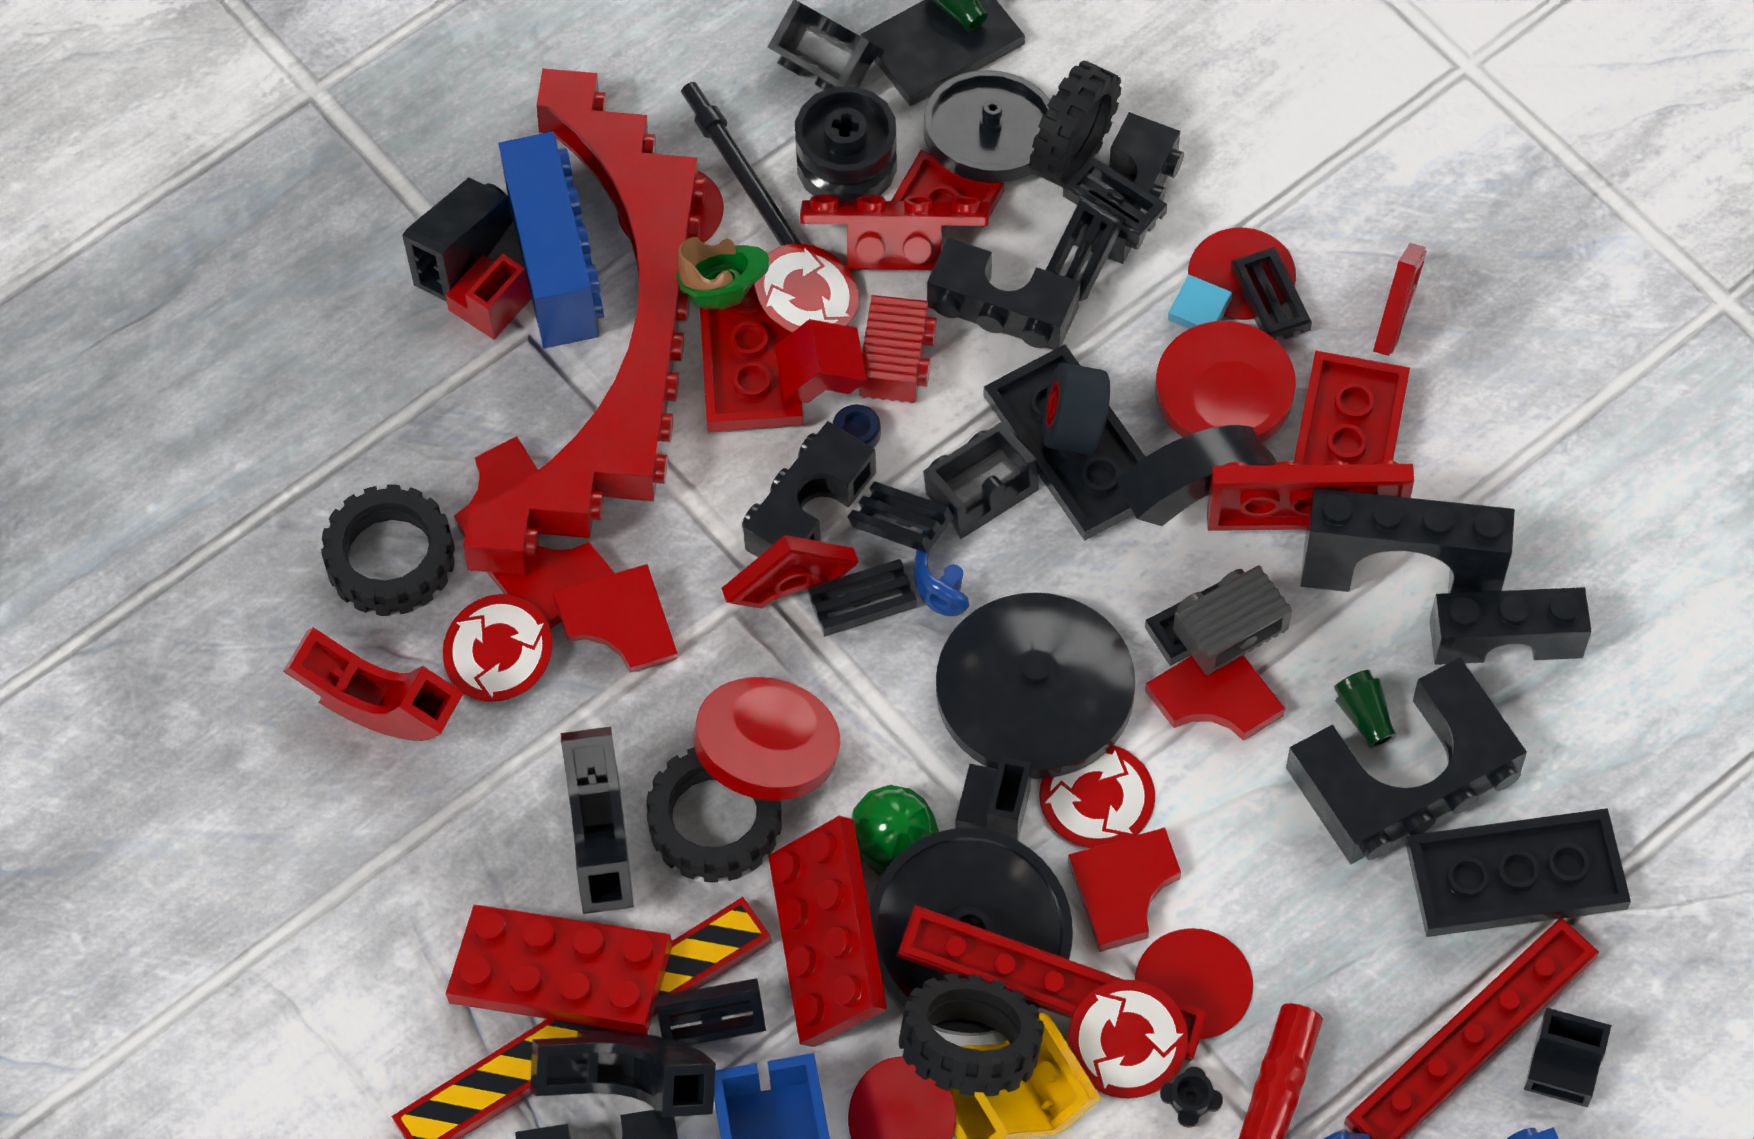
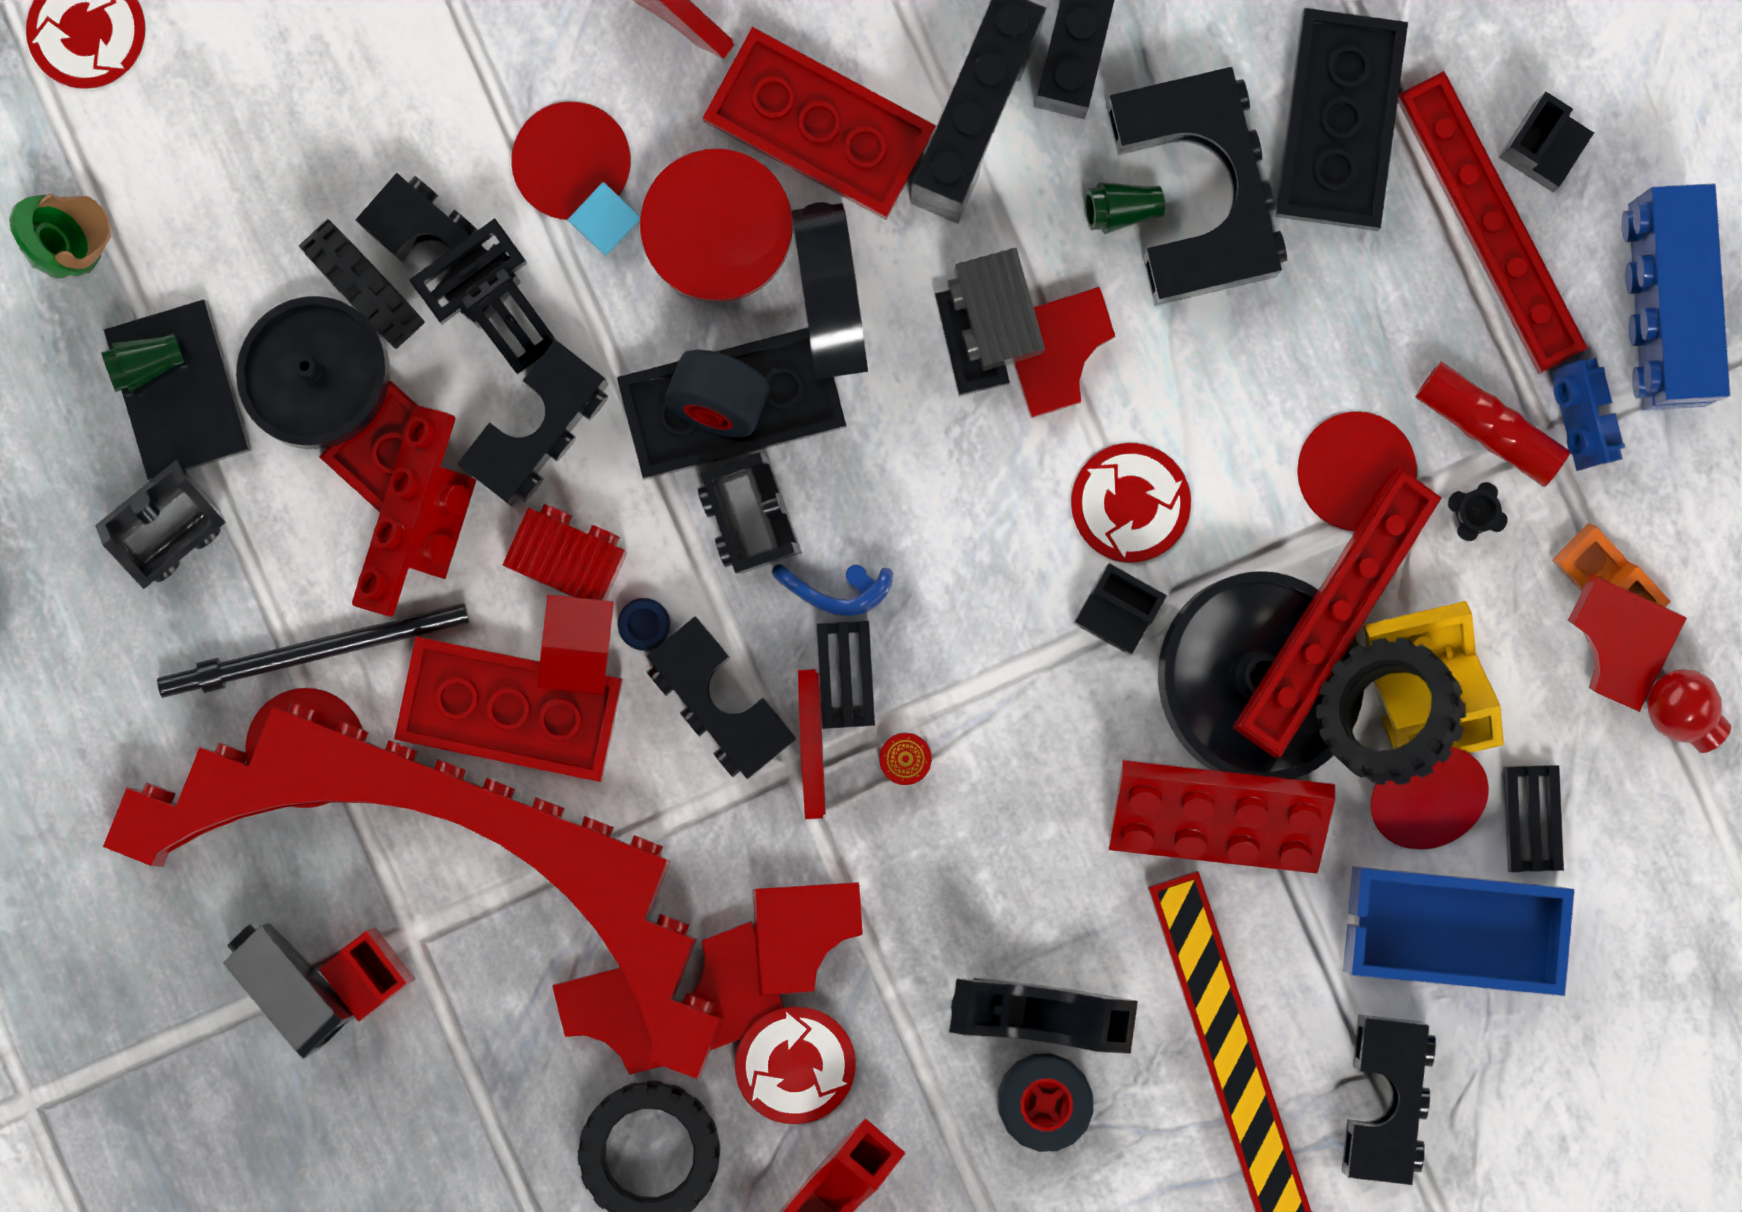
camera: 80 degrees left, 25 degrees up
(518, 839) = (1054, 1117): none -> black wheel
(552, 239) = (329, 895): blue piece -> none
(559, 969) = (1177, 1090): red plate -> none
(629, 1064) = (1305, 1043): black arch -> none
(701, 860) = (1101, 911): black tyre -> none
(709, 1007) = (1267, 953): black tile -> none
(719, 273) = (437, 720): green piece -> none
(766, 738) = (989, 819): red piece -> none
(801, 664) = (905, 758): none -> red tile
(805, 286) = (466, 631): sticker -> none
(846, 143) = (267, 533): black wheel -> none
(889, 822) = (1121, 717): green piece -> none
(905, 510) = (742, 637): black tile -> none
(1035, 683) = (996, 527): black dish -> none
(1120, 883) = (1237, 510): red tile -> none
(1128, 1038) = (1410, 555): sticker -> none
(1283, 492) = (901, 168): red plate -> none
(1284, 326) = (594, 162): black tile -> none

